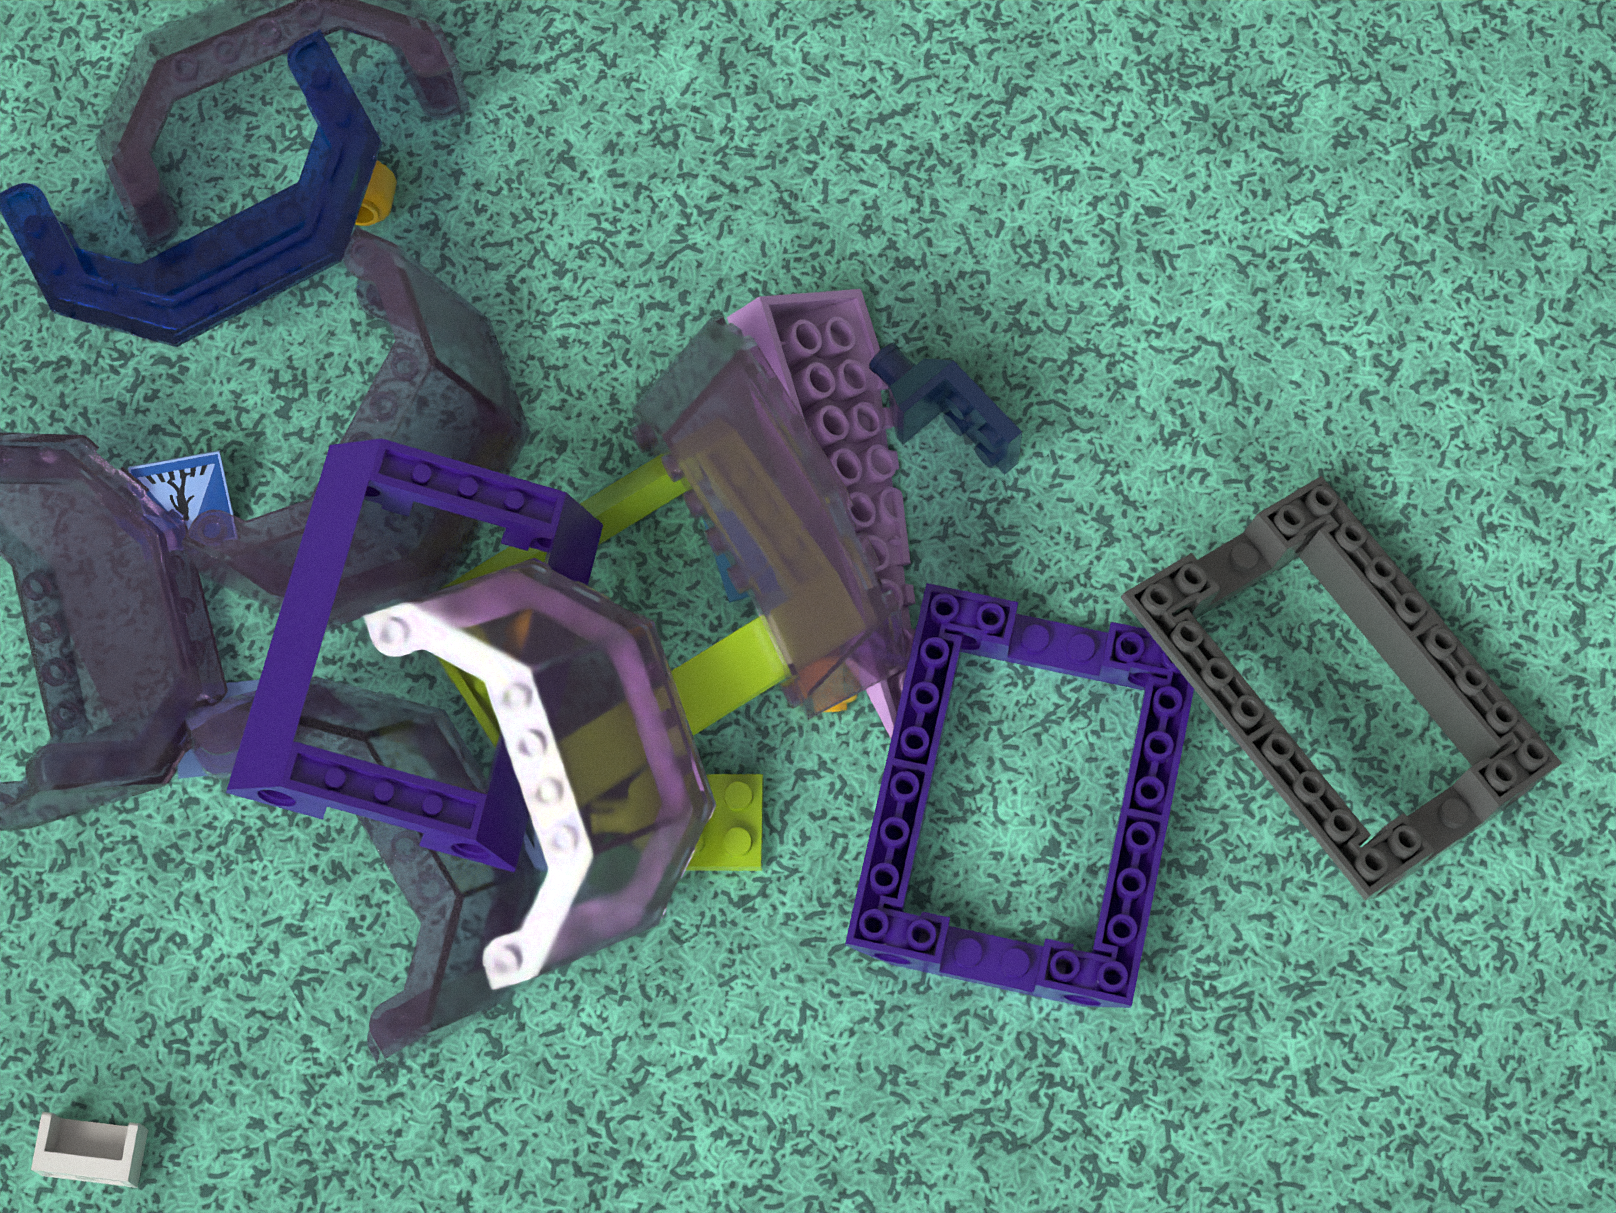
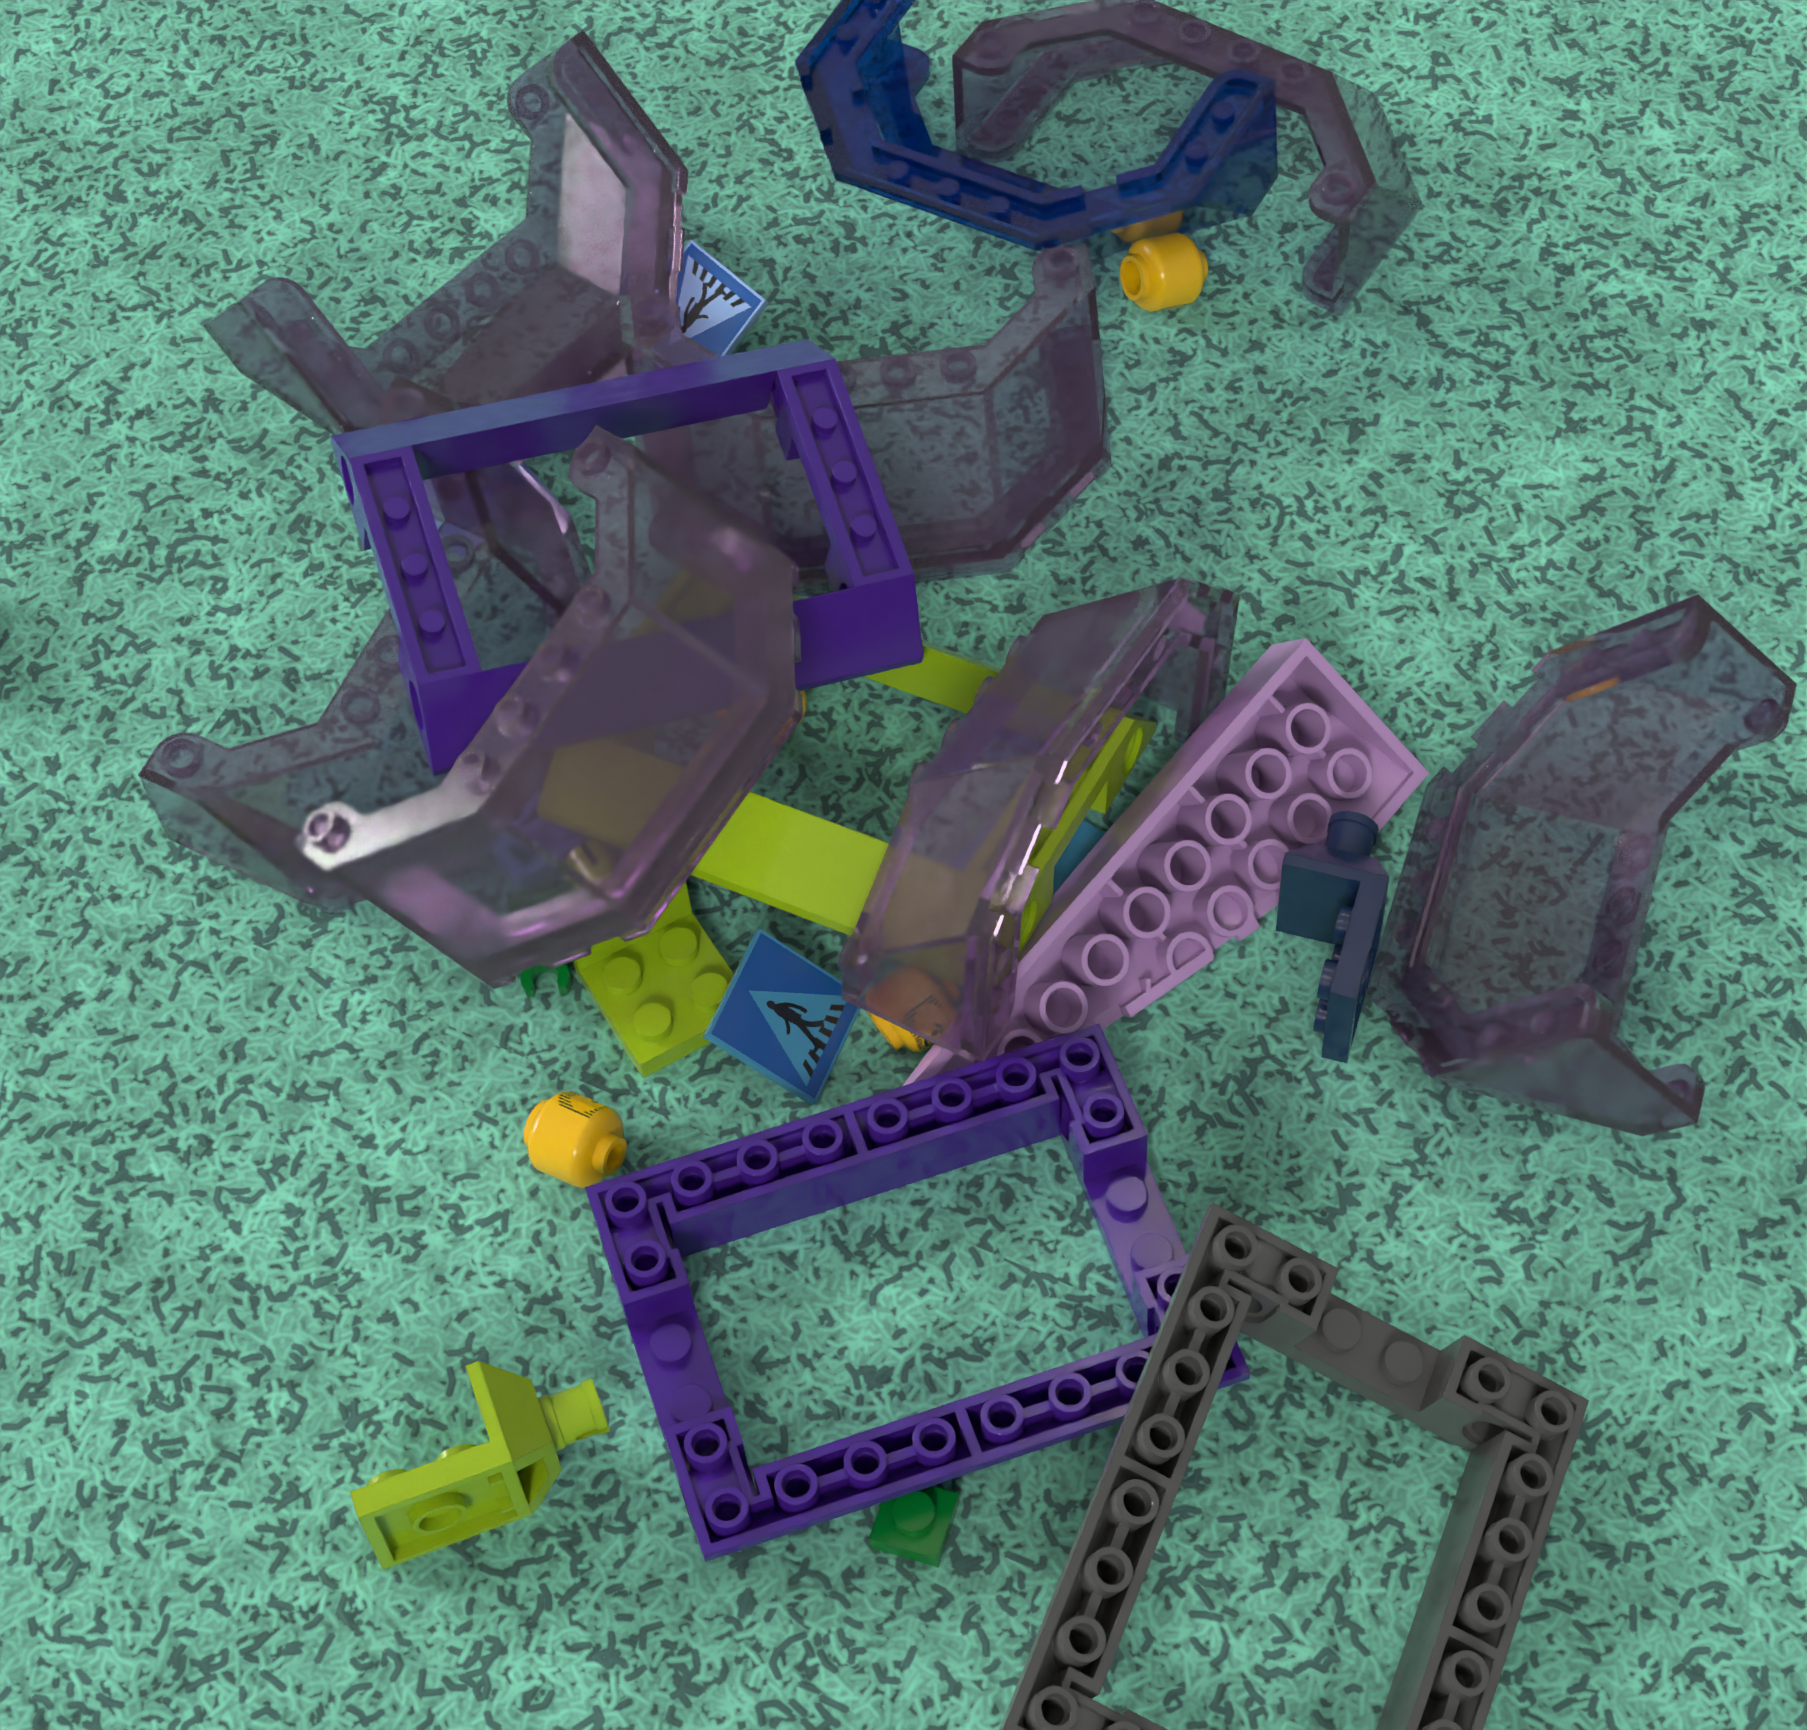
camera: 60 degrees right, 15 degrees down
(786, 761) = (783, 1017): none -> piece
(792, 933) = (574, 1138): none -> yellow head
(975, 278) = (1544, 860): none -> windscreen
(990, 1072) = (483, 1484): none -> lime plate
(1170, 882) = (916, 1525): none -> green plate

